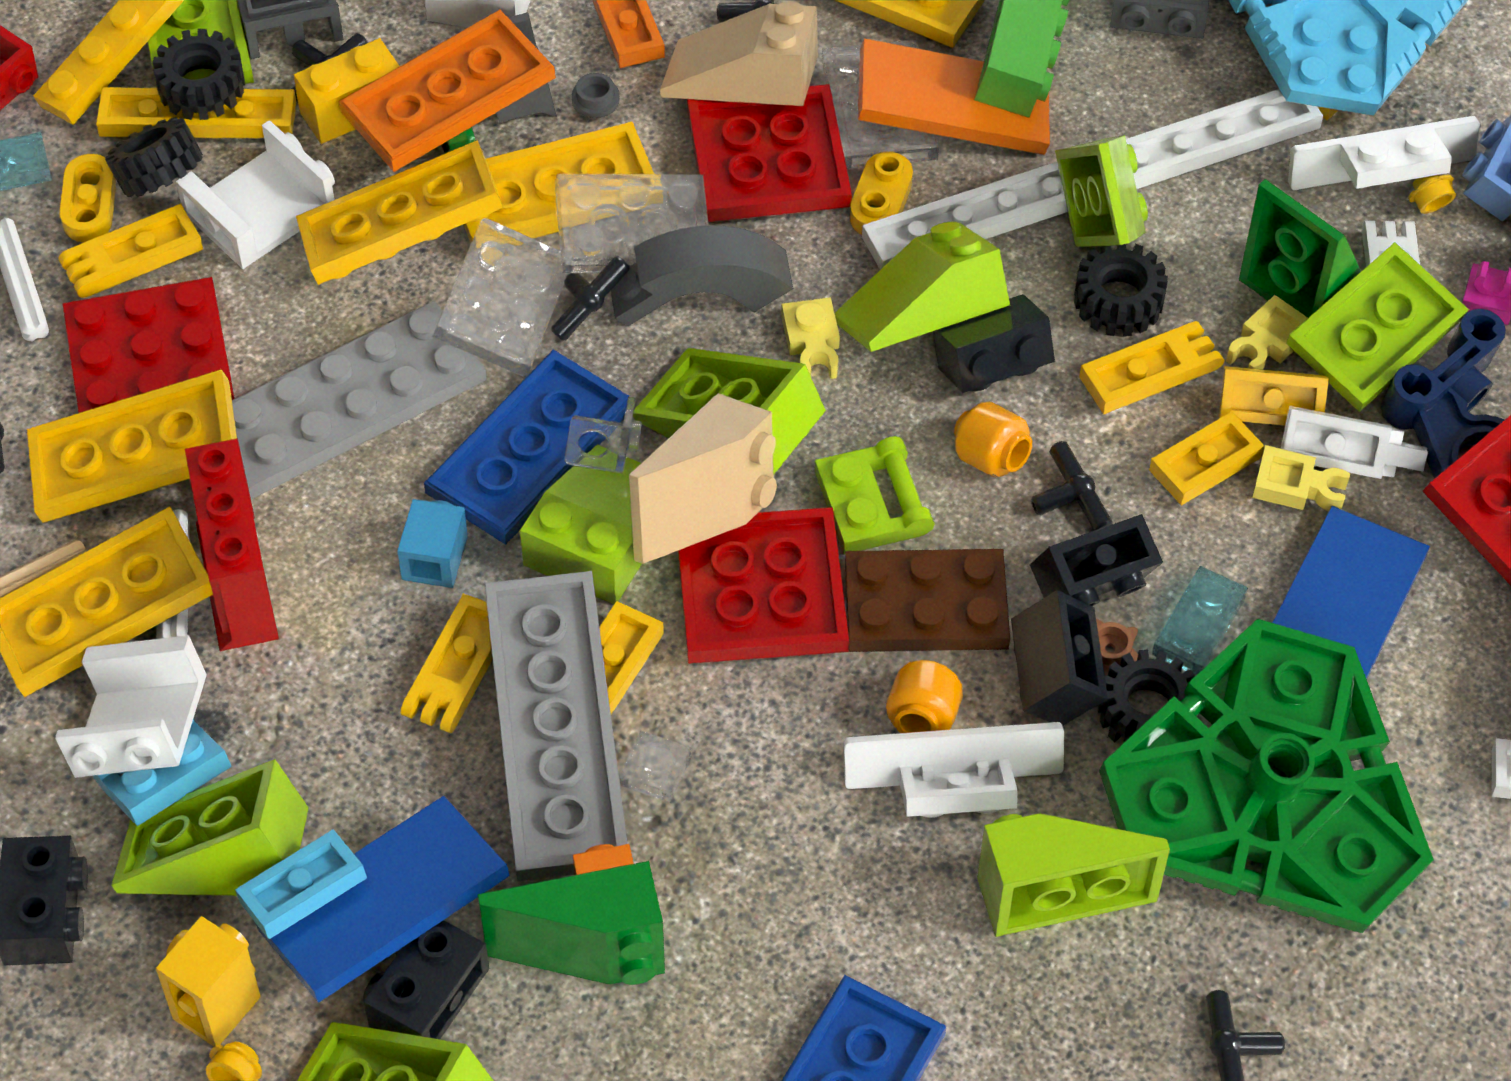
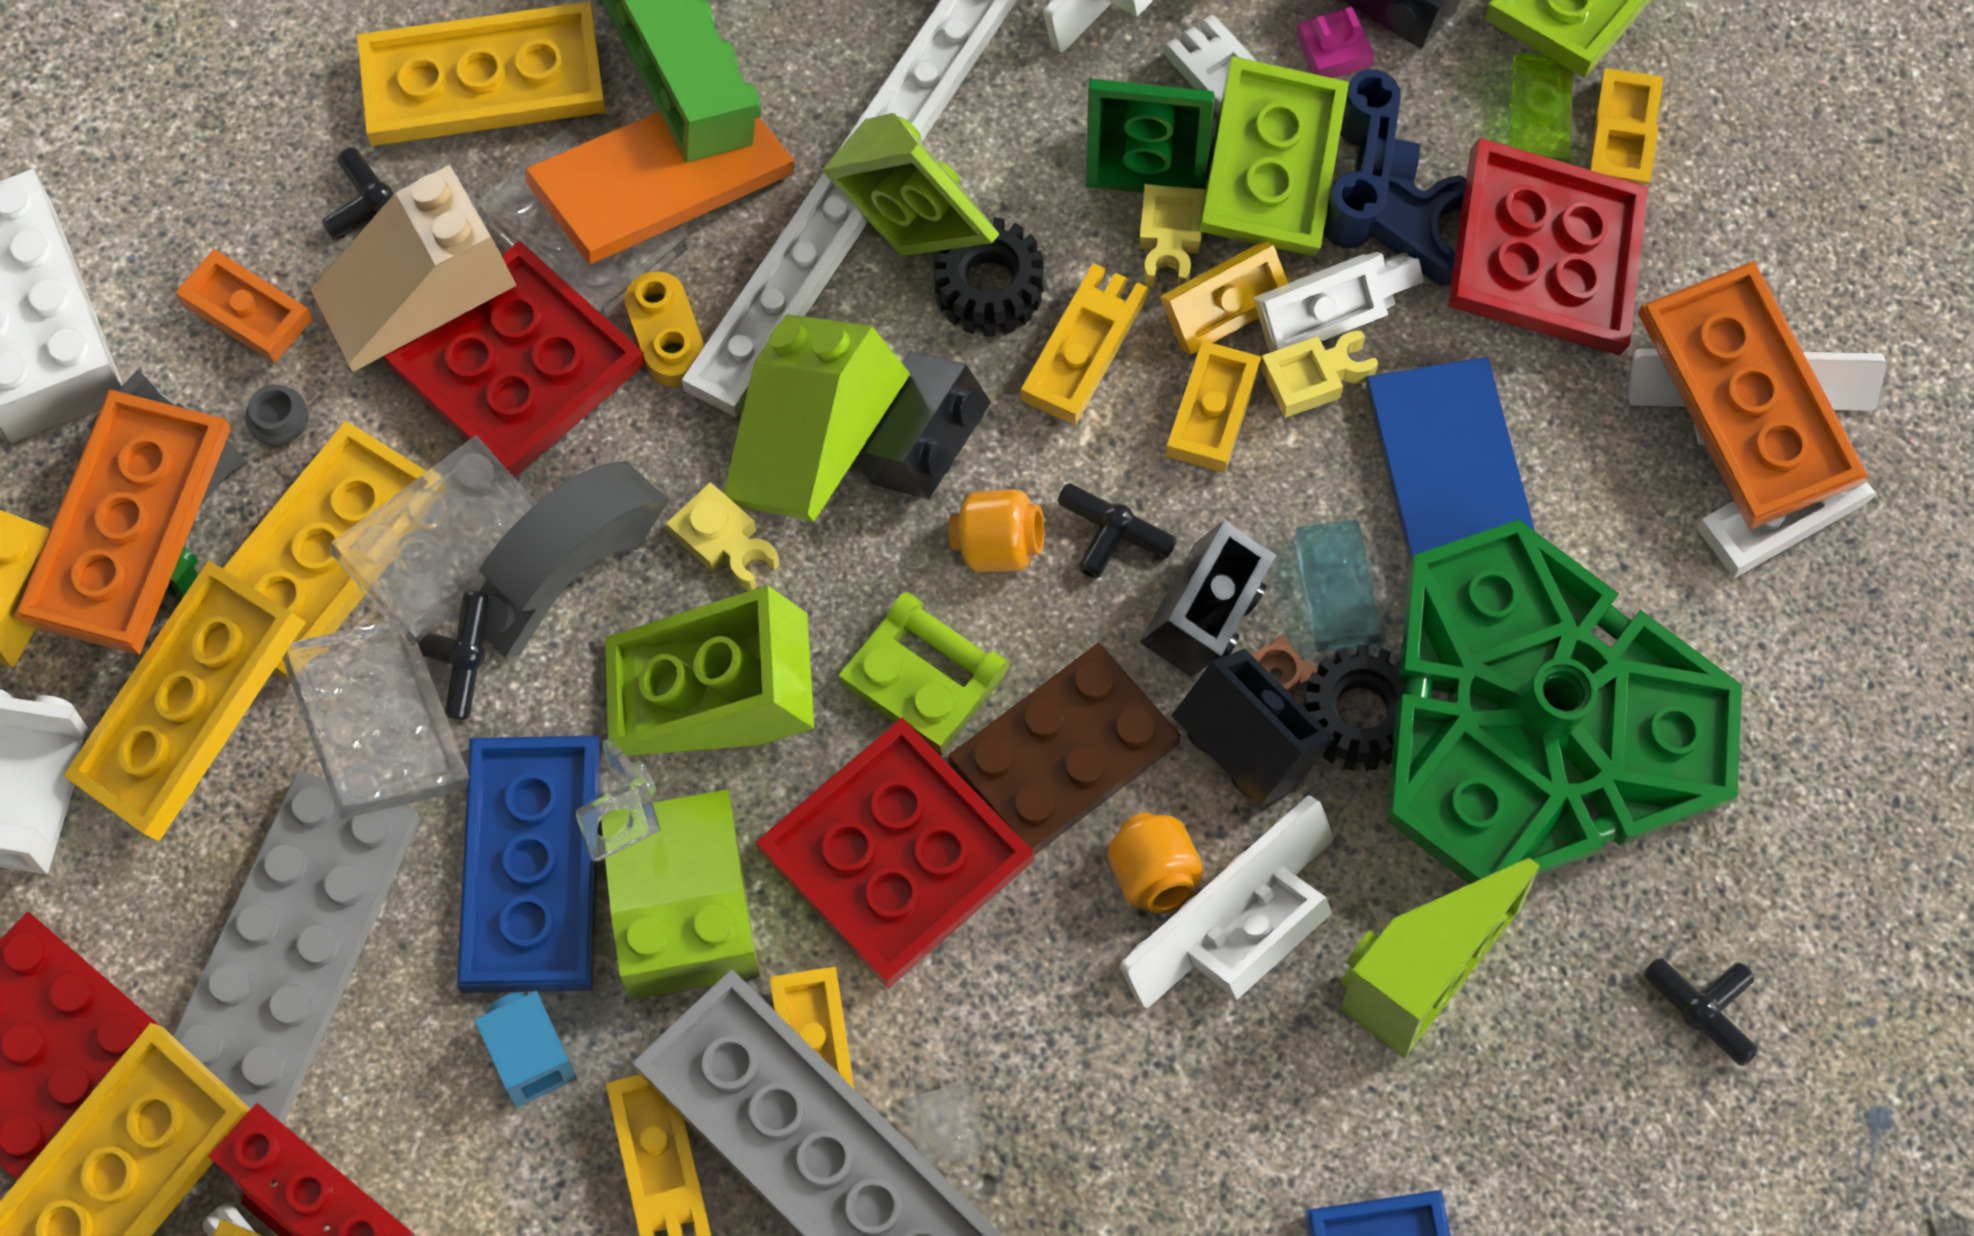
camera: 35 degrees left, 10 degrees up
(703, 479) = (772, 783): tan slope -> none

